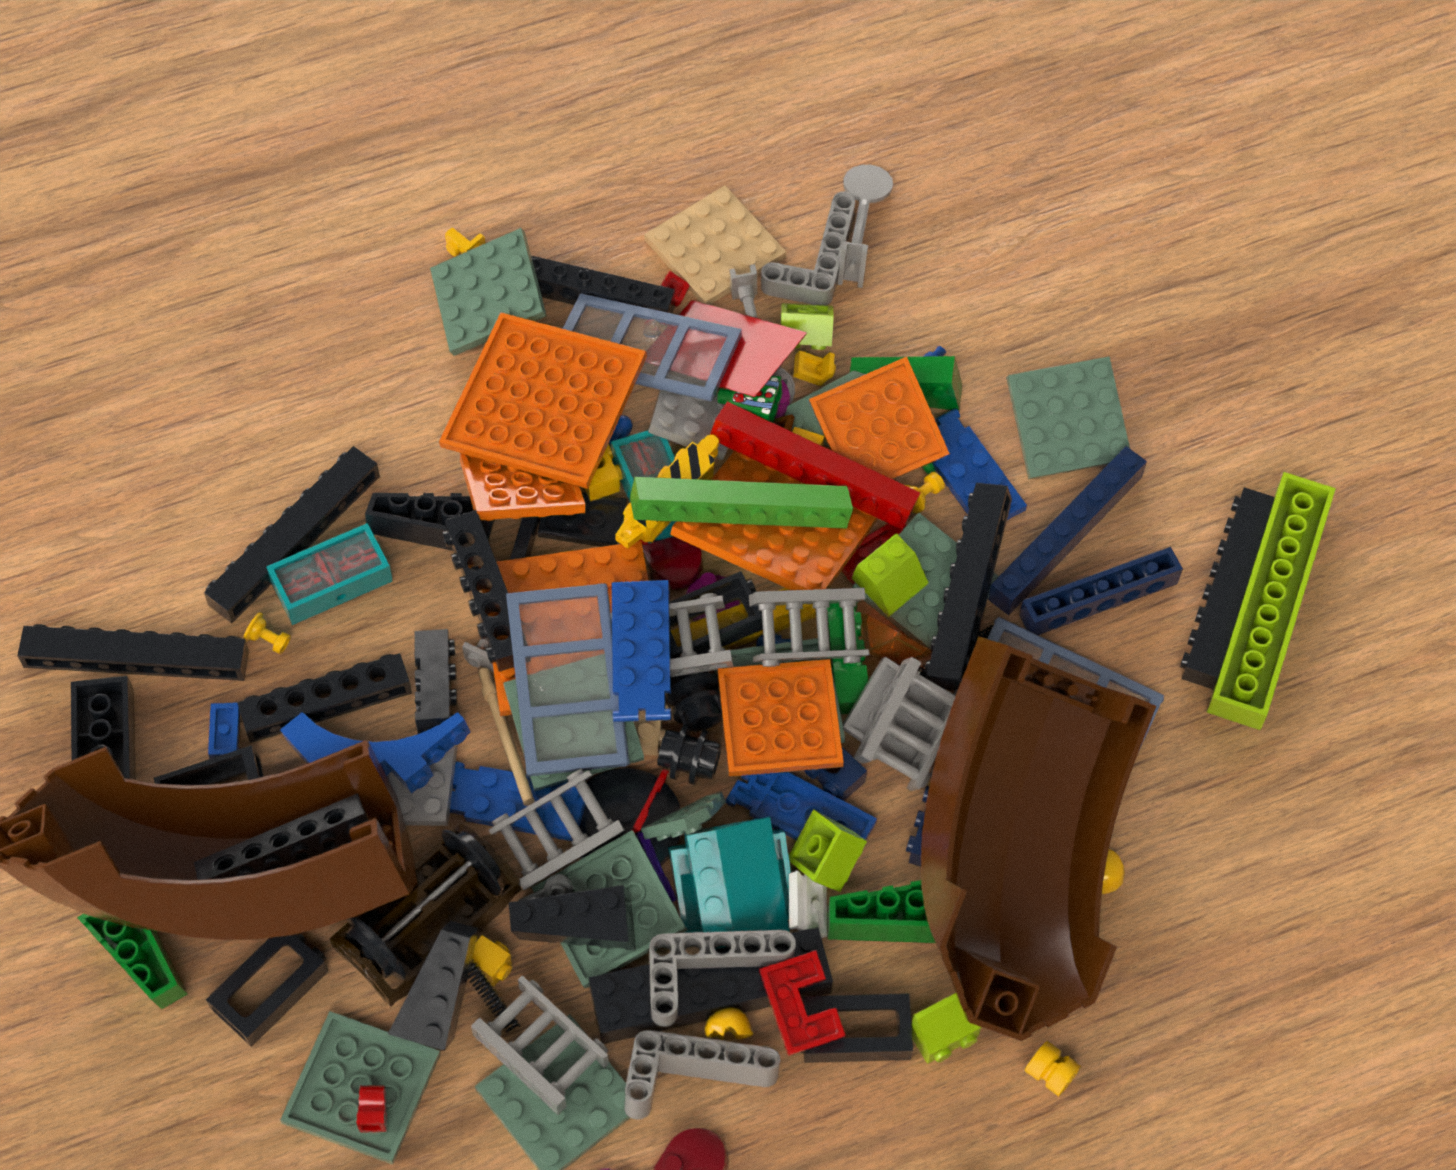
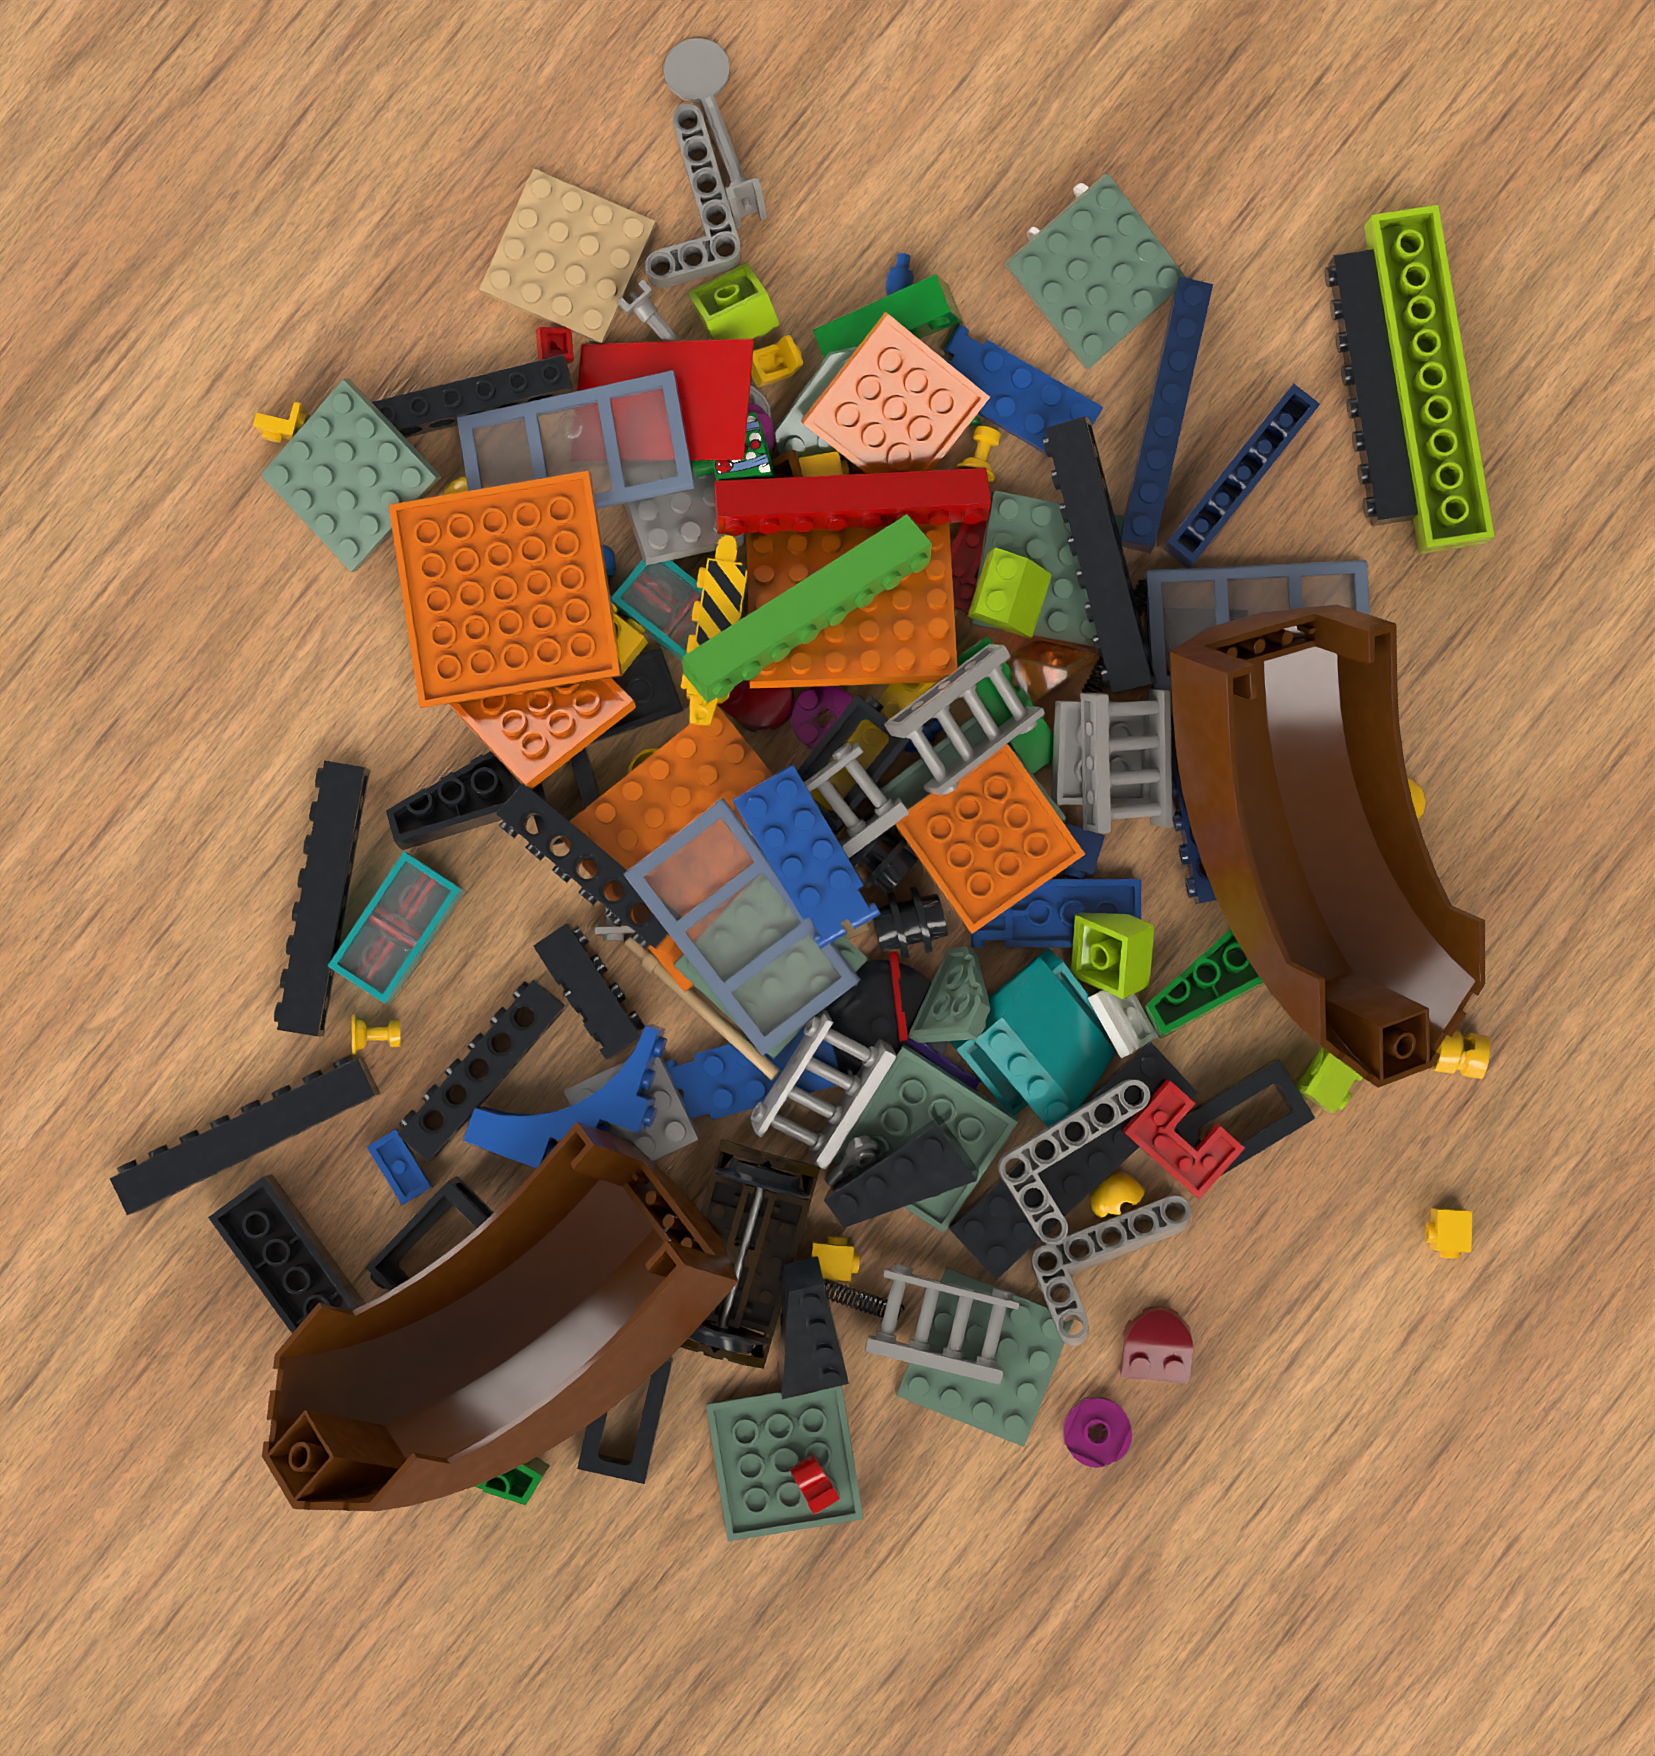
camera: 25 degrees left, 25 degrees up
(287, 843) = (543, 1285): black brick -> none

